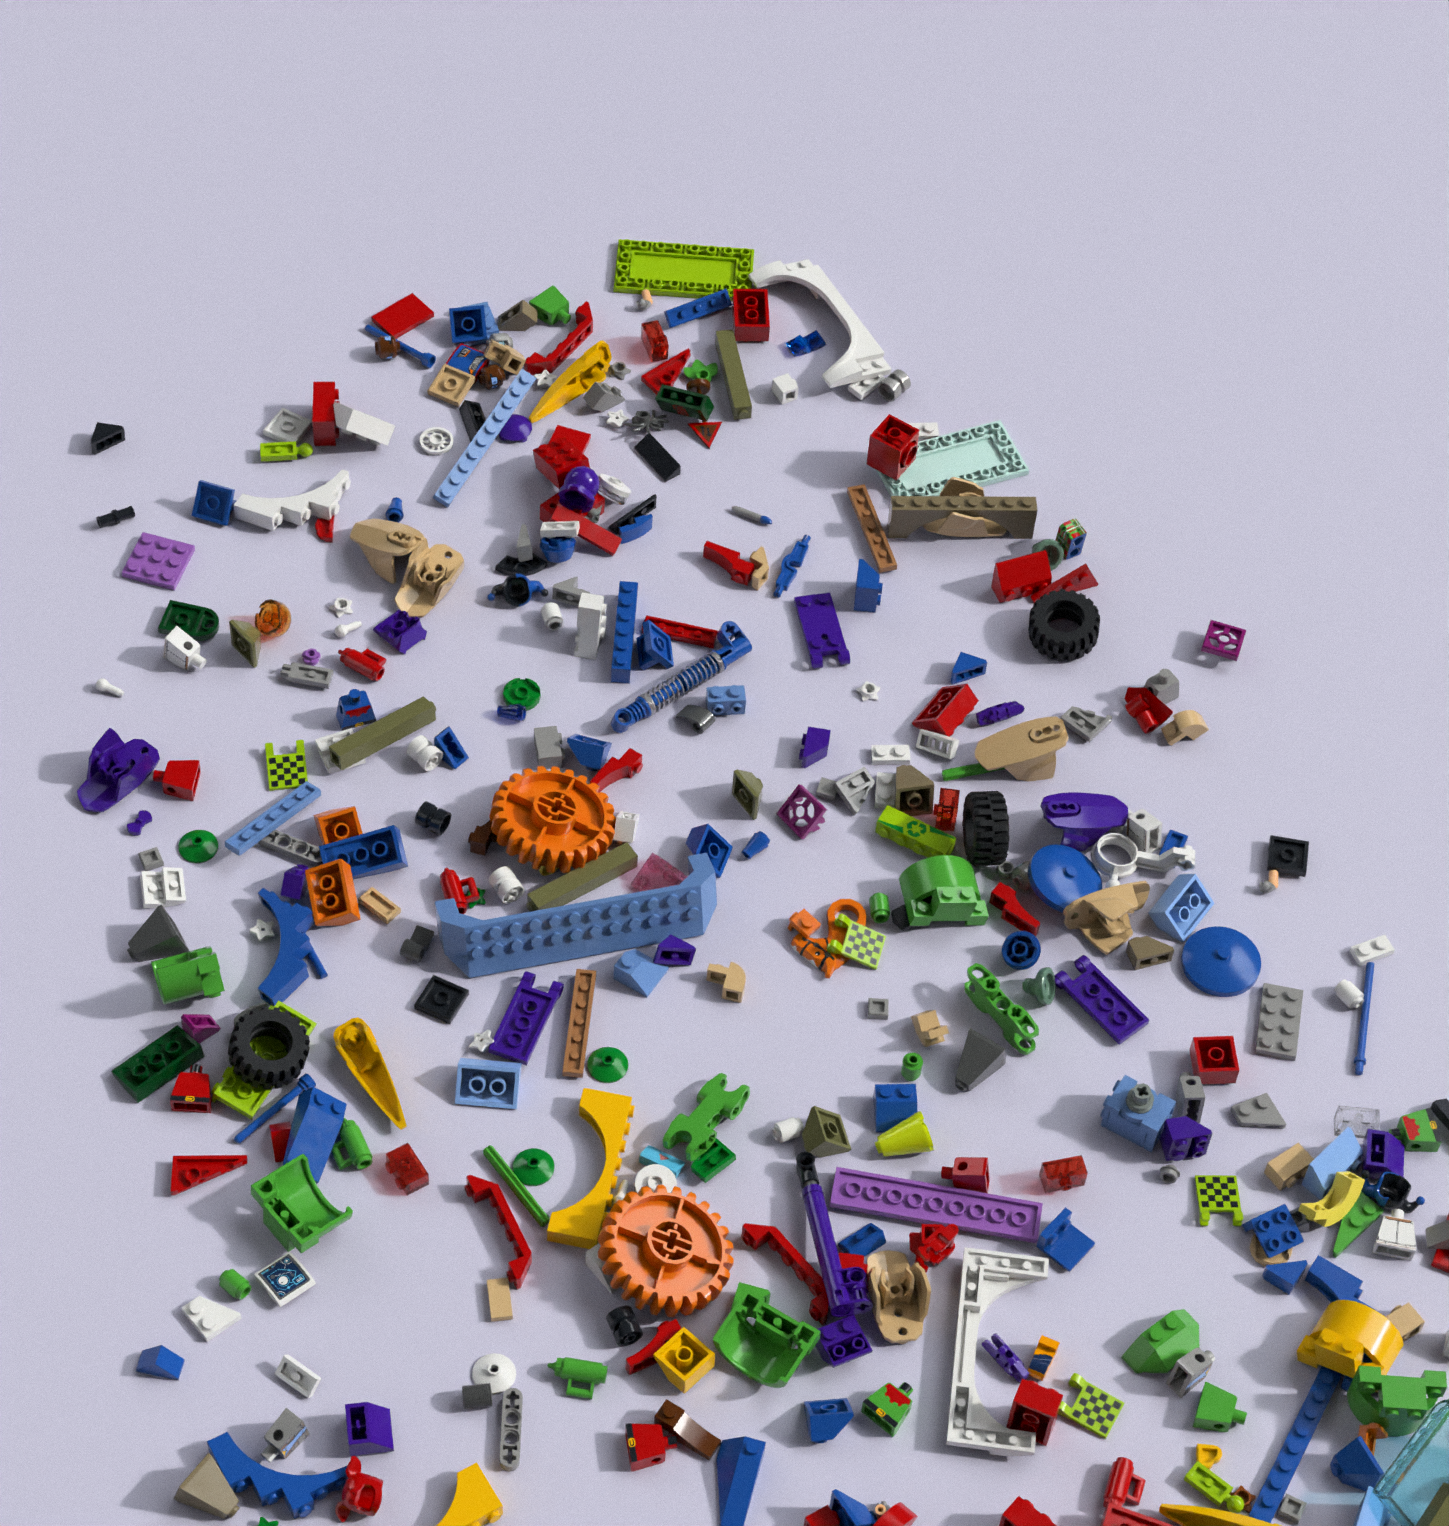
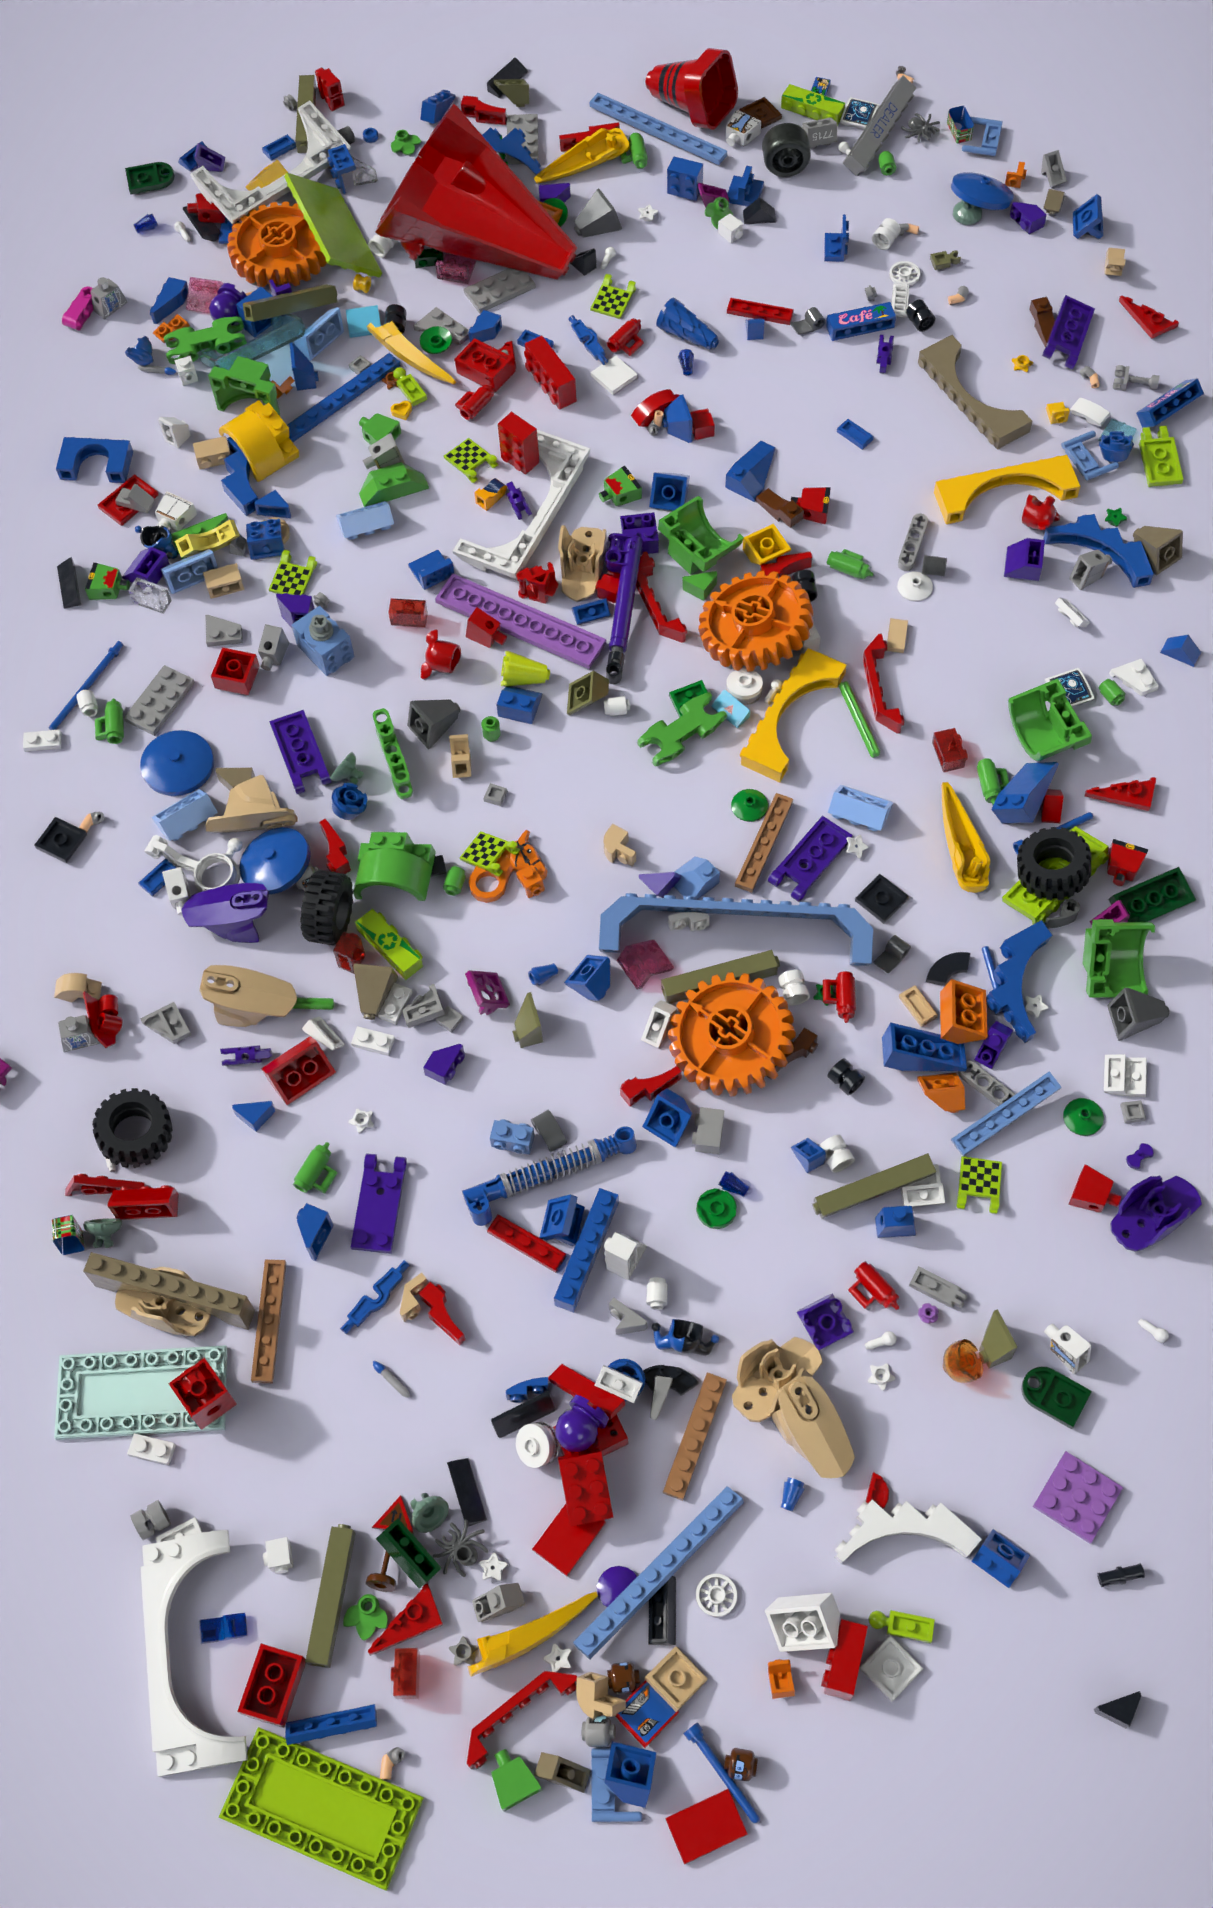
camera: 155 degrees left, 10 degrees up
(358, 947) = (948, 966): none -> black tile
(371, 399) = (780, 1679): none -> orange bracket
(486, 533) = (694, 1436): none -> medium nougat plate
(533, 1174) = (839, 740): green dish -> none
(683, 435) = (429, 1512): none -> sand green hair
(891, 641) = (312, 1169): none -> bright green piece
(1002, 1129) = (439, 655): none -> red piece
(1173, 1284) = (365, 520): none -> light blue slope
(1311, 979) = (113, 723): none -> bright green piece

